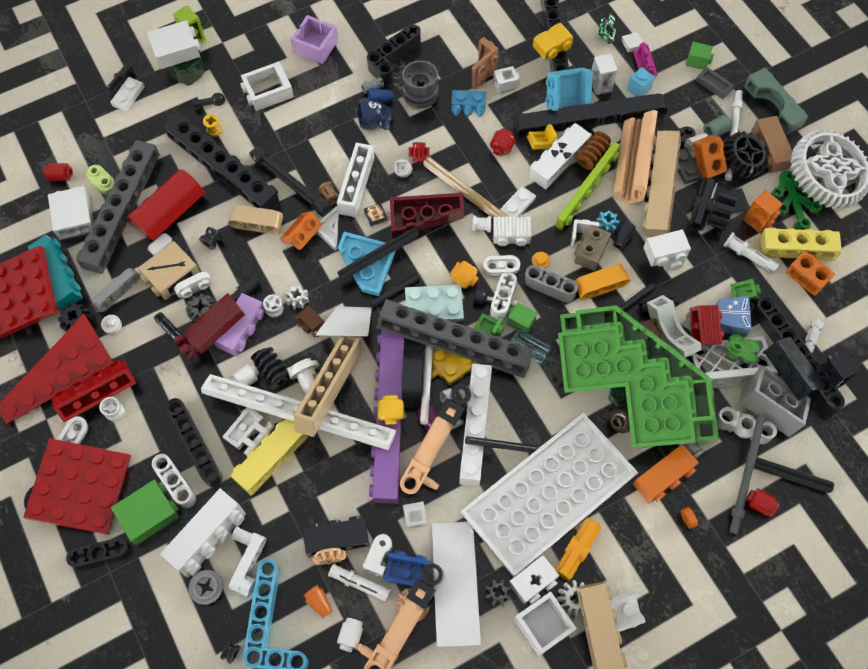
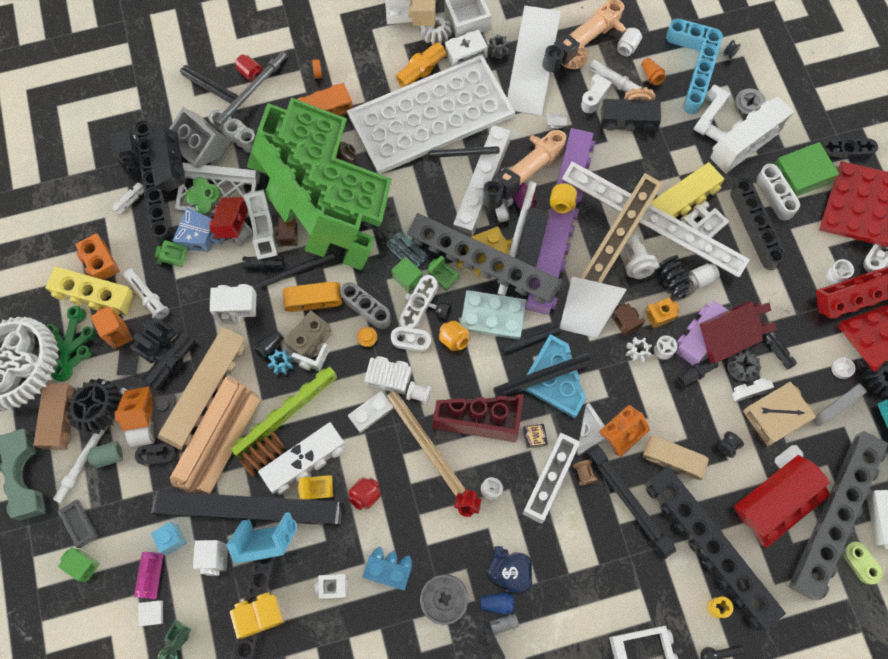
camera: 165 degrees left, 5 degrees up
(285, 338) = (658, 317): none -> light orange brick
(404, 569) = (572, 78): blue bracket -> none
(486, 63) = (344, 624): nougat bracket -> none

